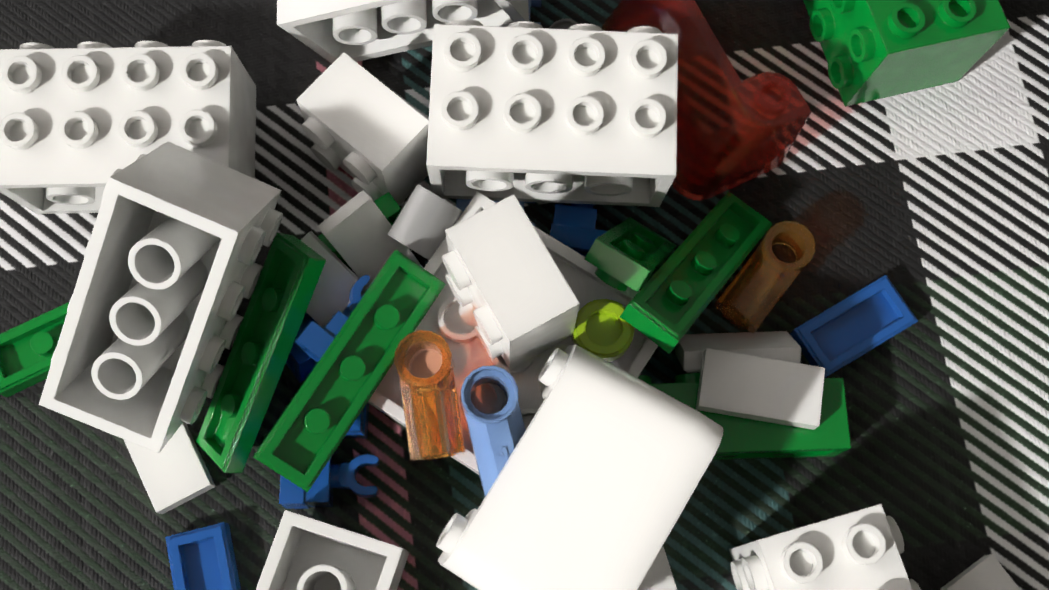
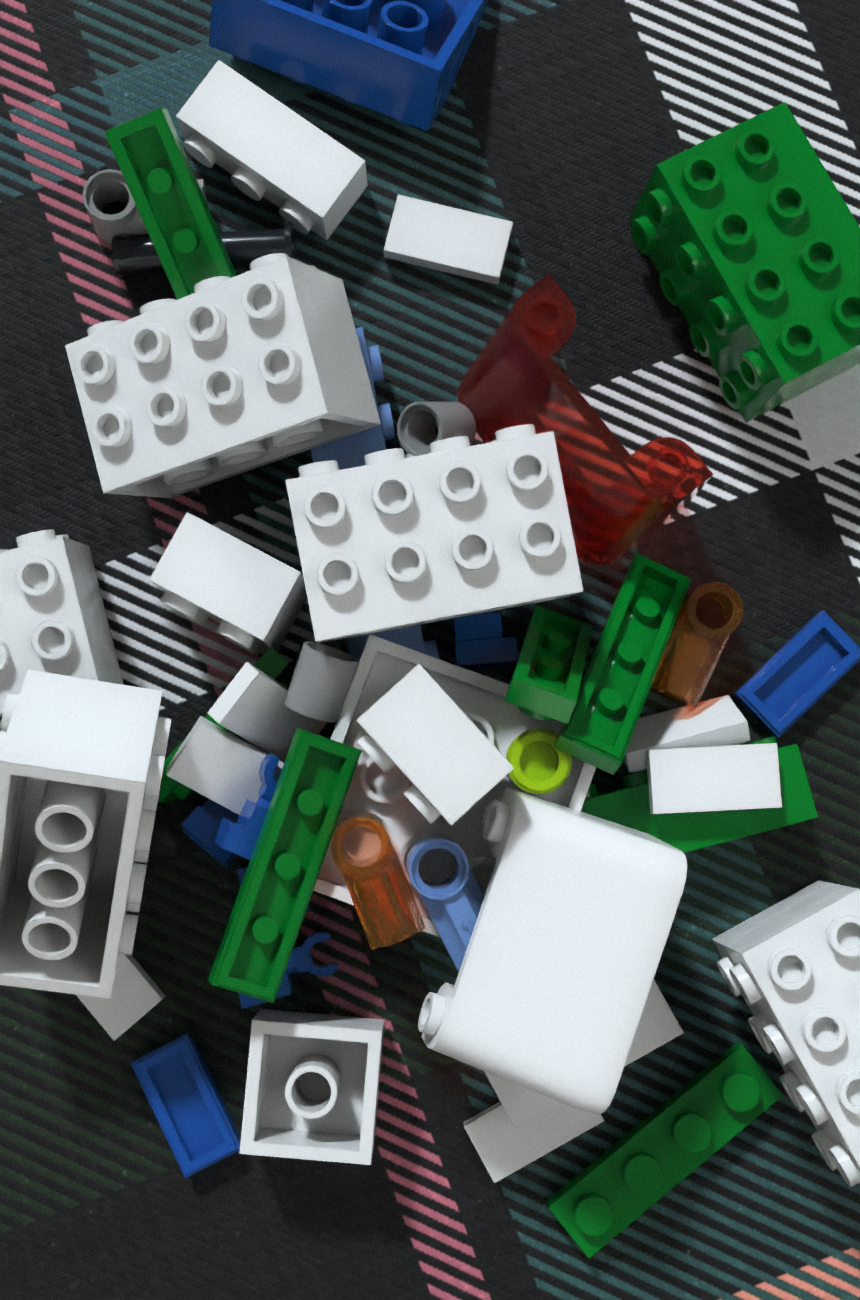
camera: 10 degrees left, 10 degrees up
(260, 352) = (181, 857): green tile -> none

